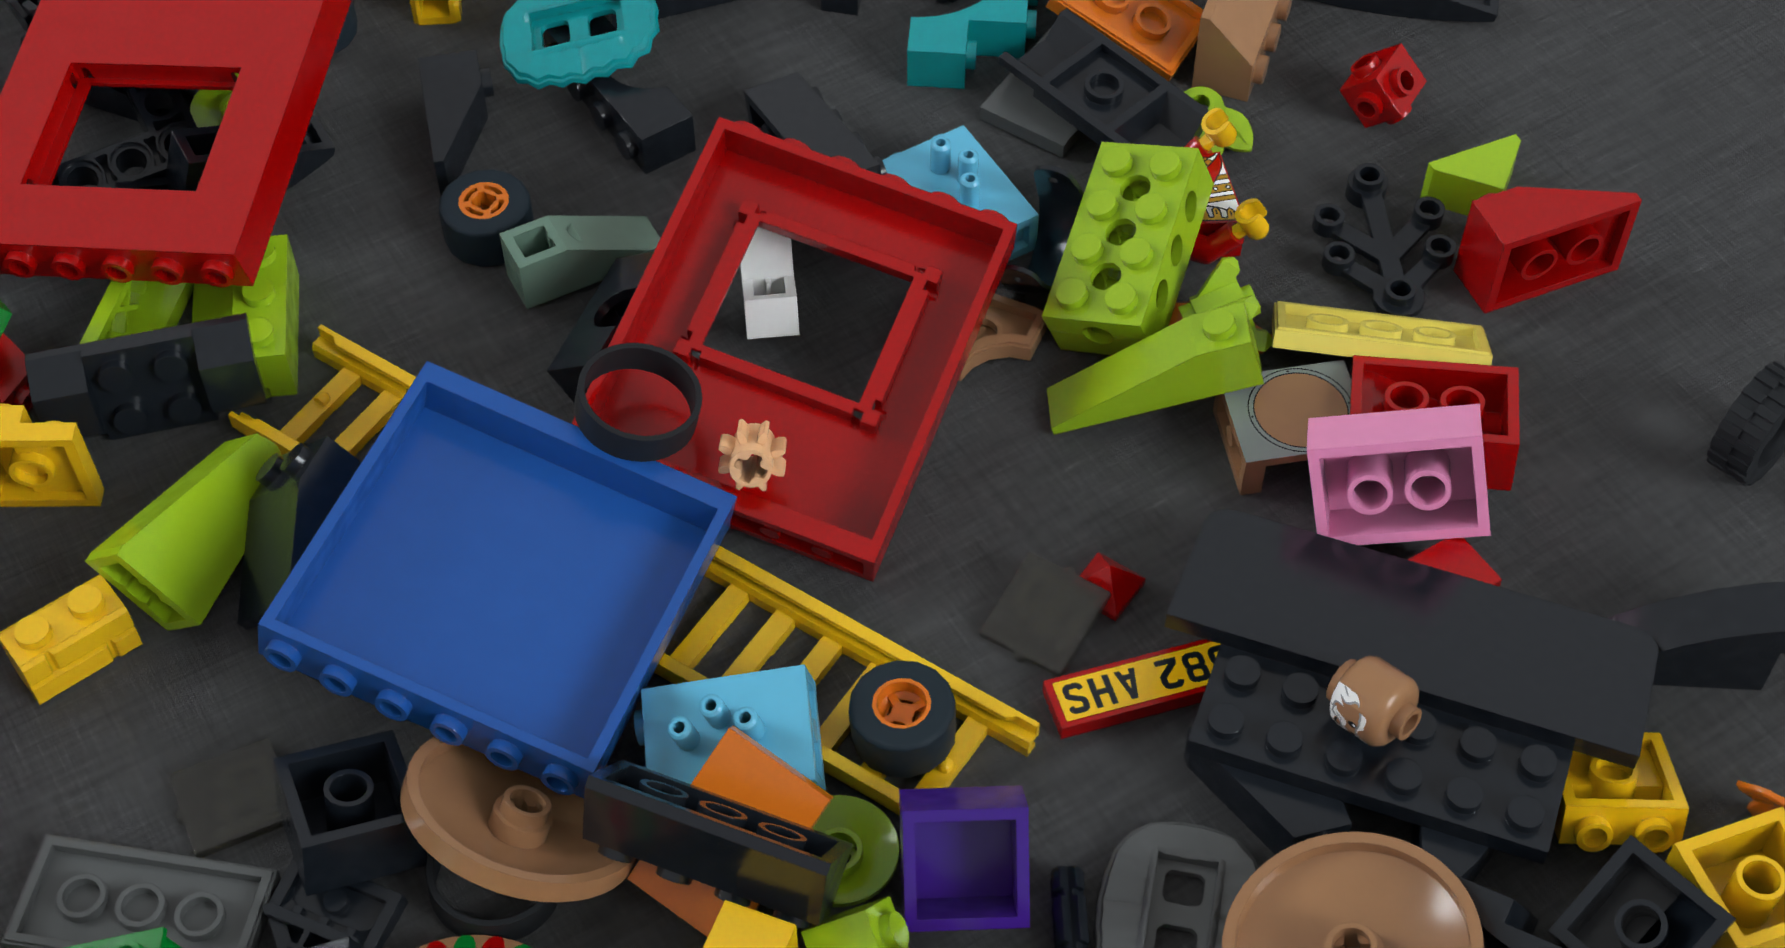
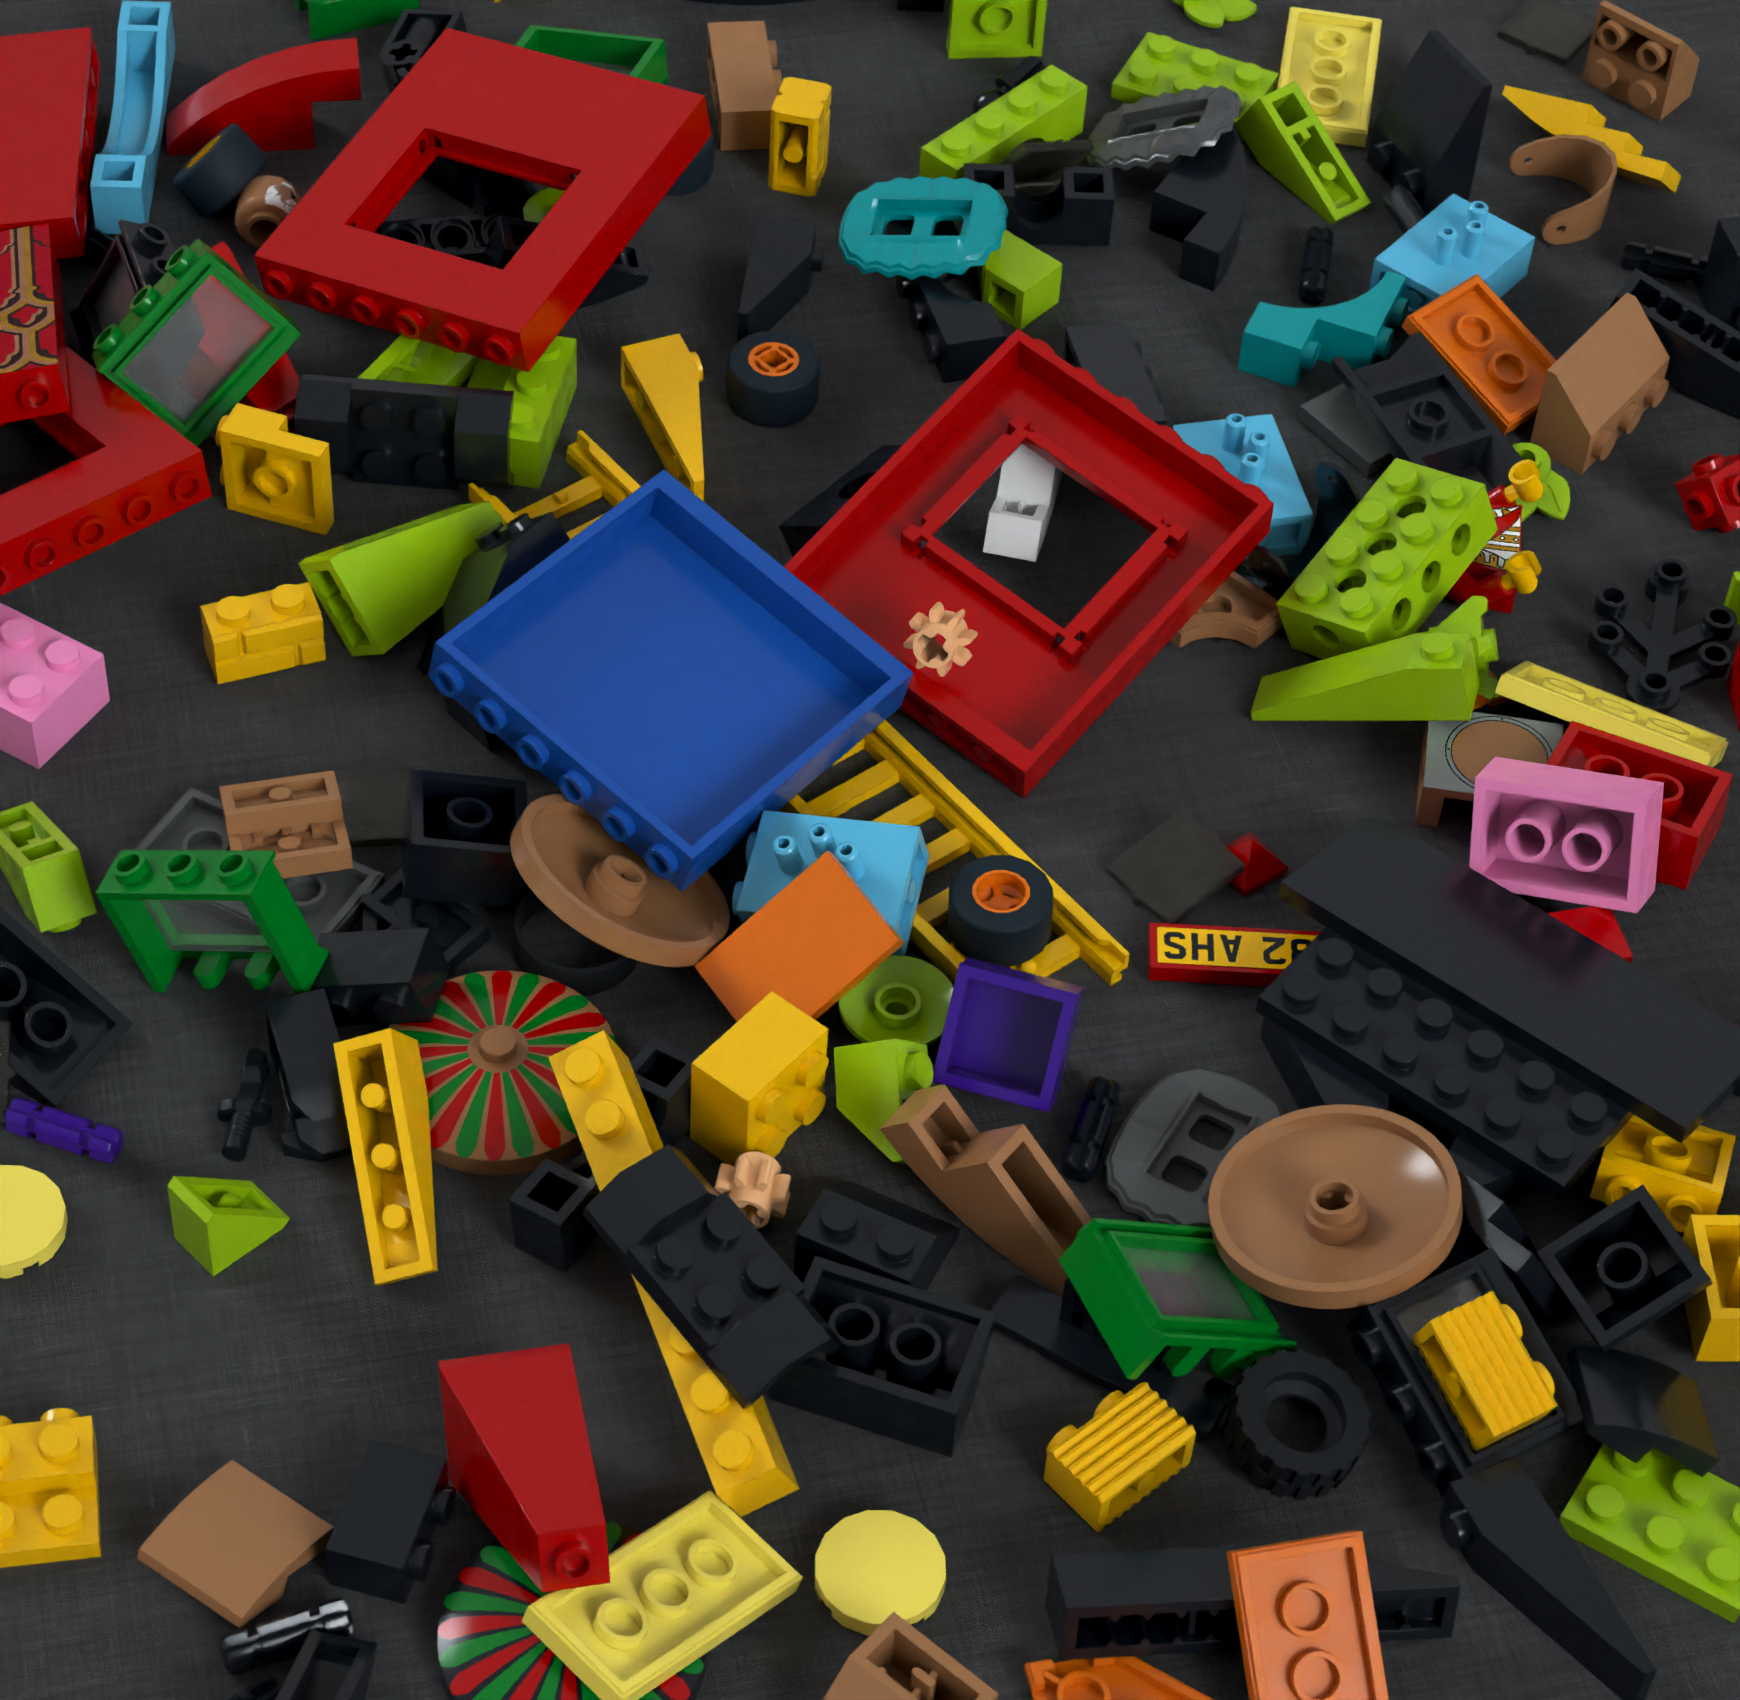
camera: 15 degrees right, 5 degrees down
(160, 853) = (293, 817): none -> medium nougat slope
(389, 262) = (664, 392): none -> yellow slope
(570, 252) = (835, 428): sand green slope -> none
(649, 359) = (863, 524): black tyre -> none
(683, 56) = (1019, 281): none -> lime slope
(714, 841) = (779, 944): black slope -> none
(1374, 701) = (1443, 1003): medium nougat head -> none

